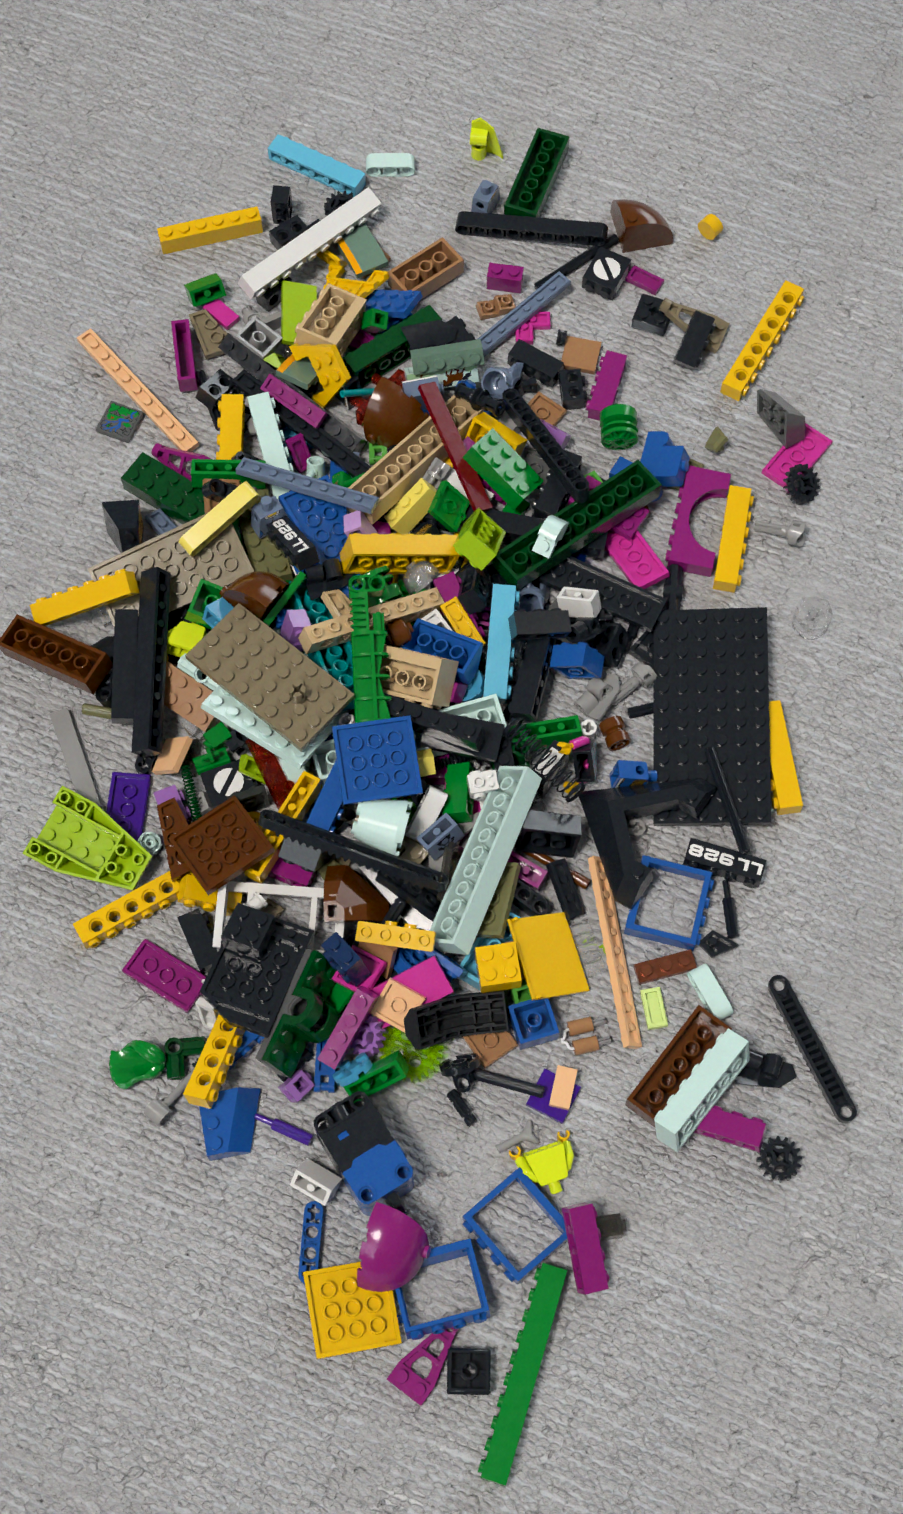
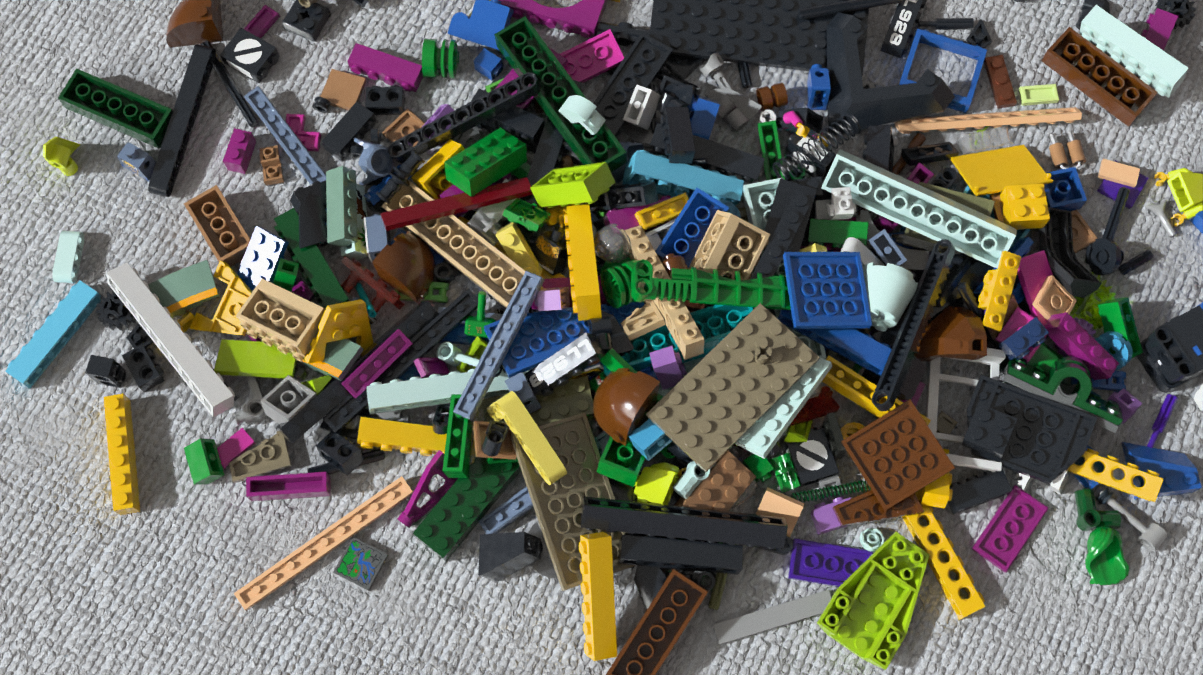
camera: 85 degrees left, 5 degrees up
(257, 902) = (953, 429): white bush -> none
(710, 992) = (1026, 46): light aqua beam -> none

